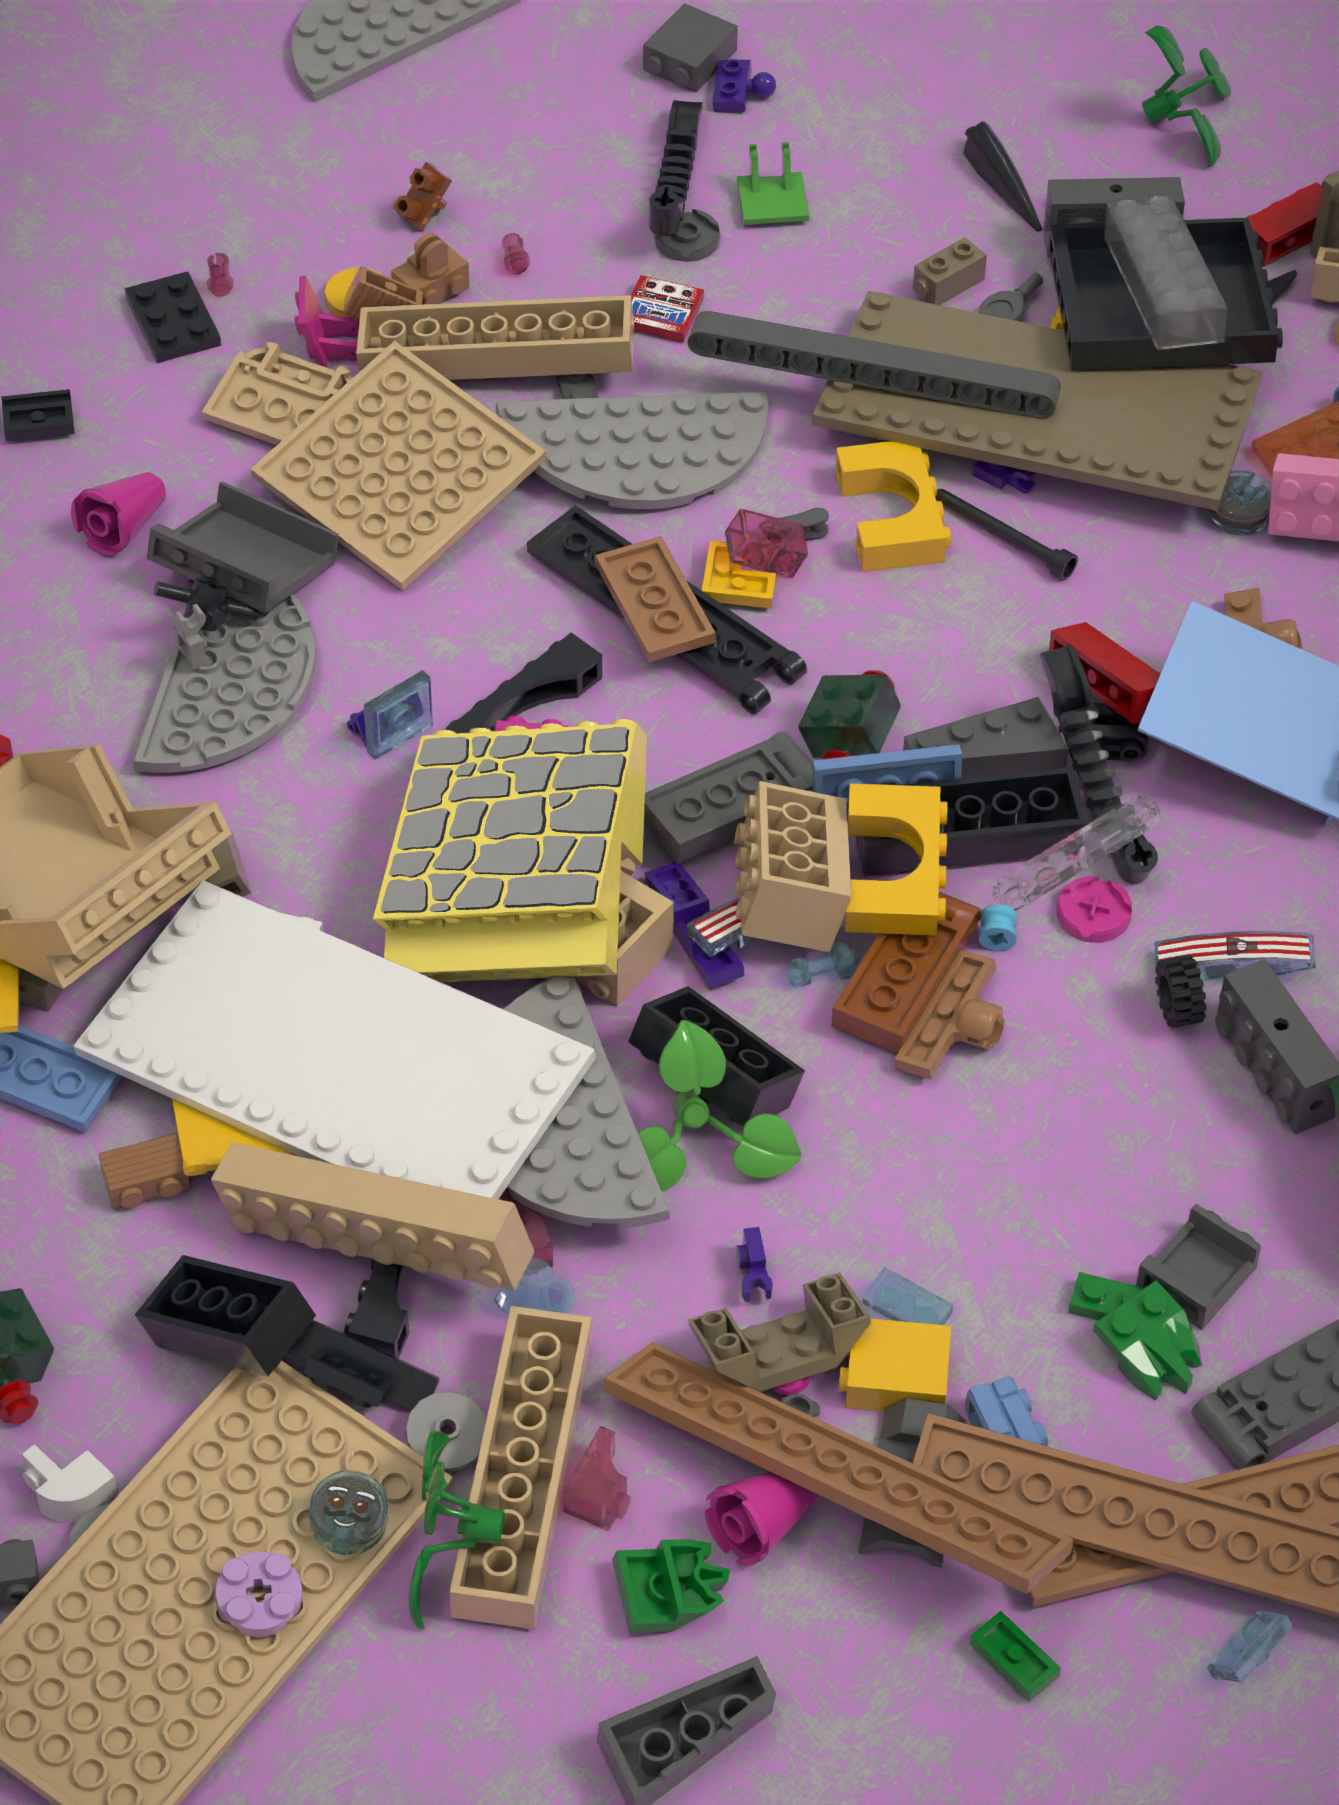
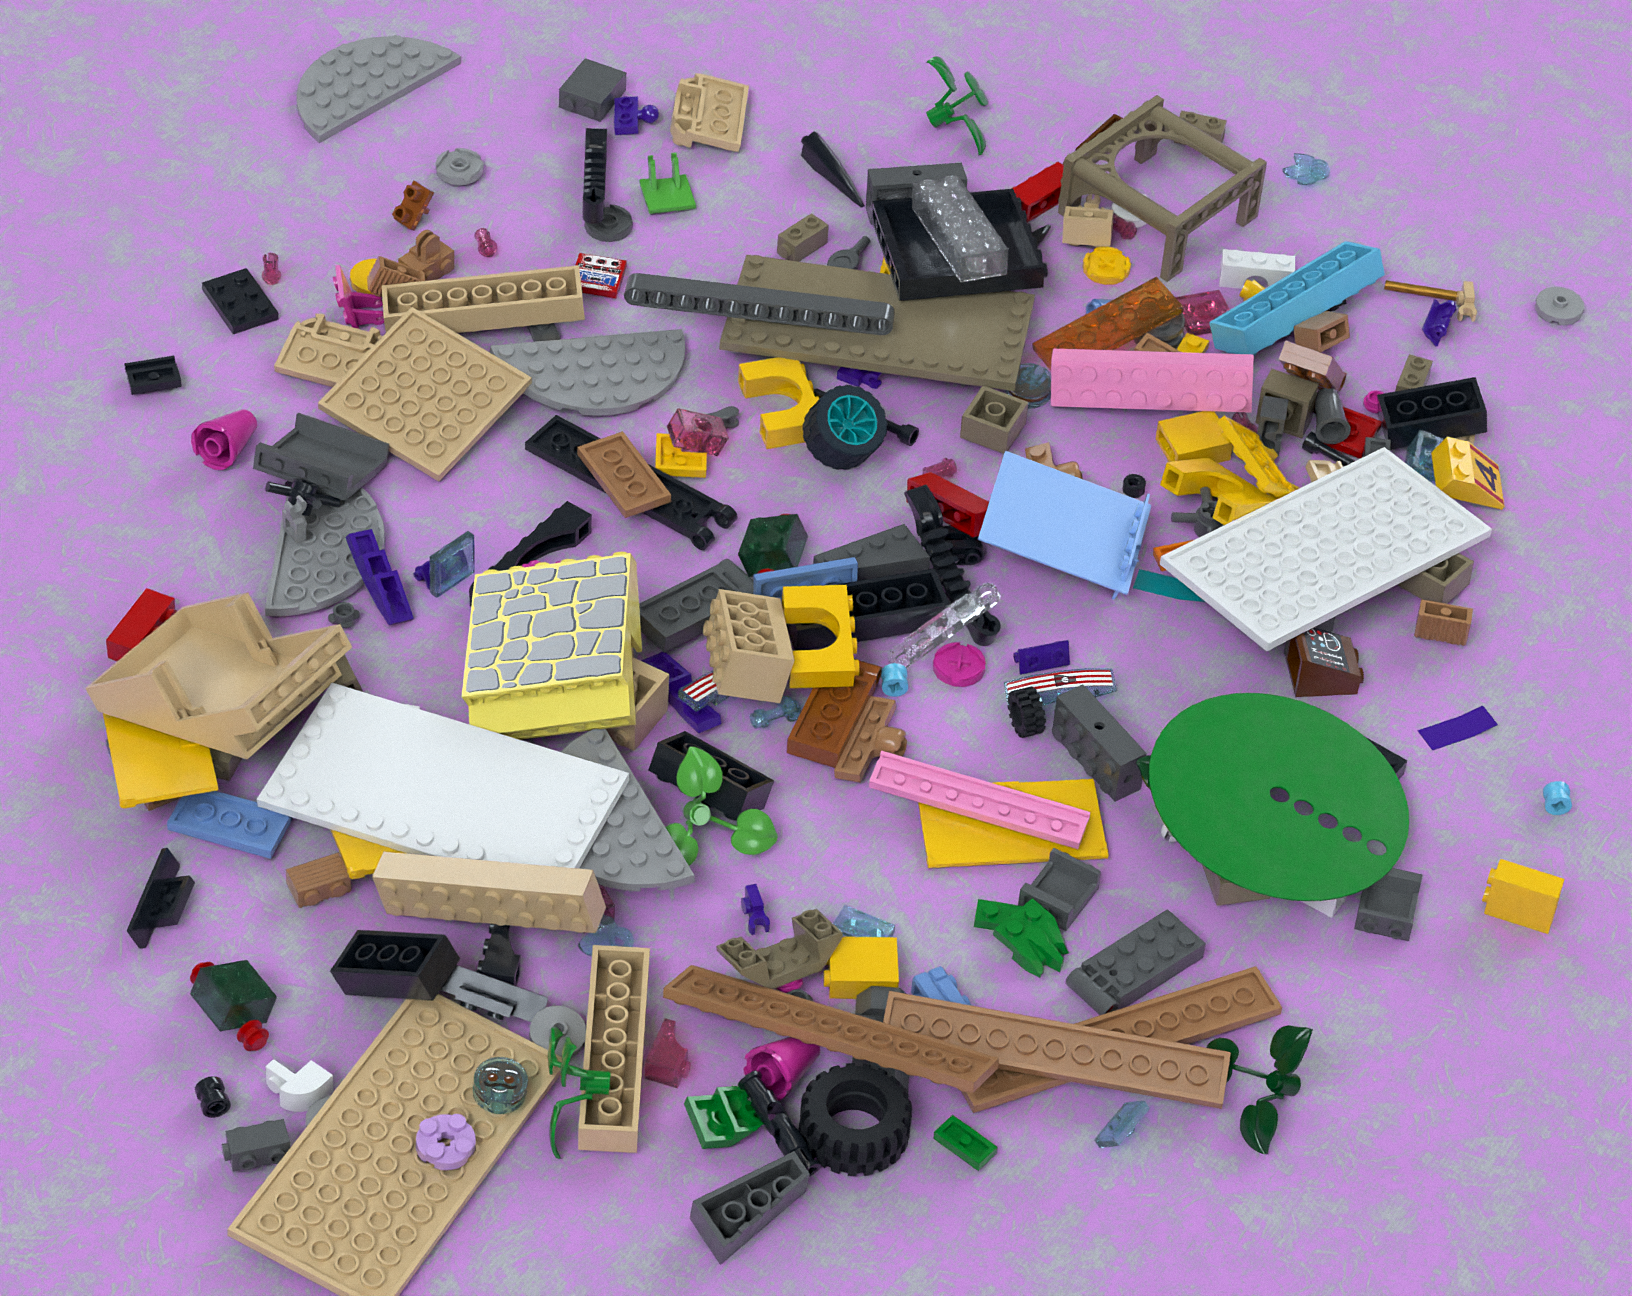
camera: 10 degrees left, 5 degrees down
(241, 777) = (343, 614): none -> dark grey plate
(296, 727) = (379, 578): none -> dark purple slope
(495, 145) = (459, 166): none -> light grey plate
(753, 1624) = (781, 1127): none -> black piece
(844, 87) = (709, 112): none -> tan plate
(856, 1656) = (861, 1090): none -> black tyre
(971, 549) = (845, 427): none -> black wheel
(1098, 1121) = (979, 799): none -> bright pink plate
(1103, 617) = (942, 469): none -> clear pink pin
(1140, 1157) = (965, 841): none -> yellow door
(1184, 550) = (994, 419): none -> dark tan brick
(1214, 907) = (1042, 657): none -> dark purple hinge

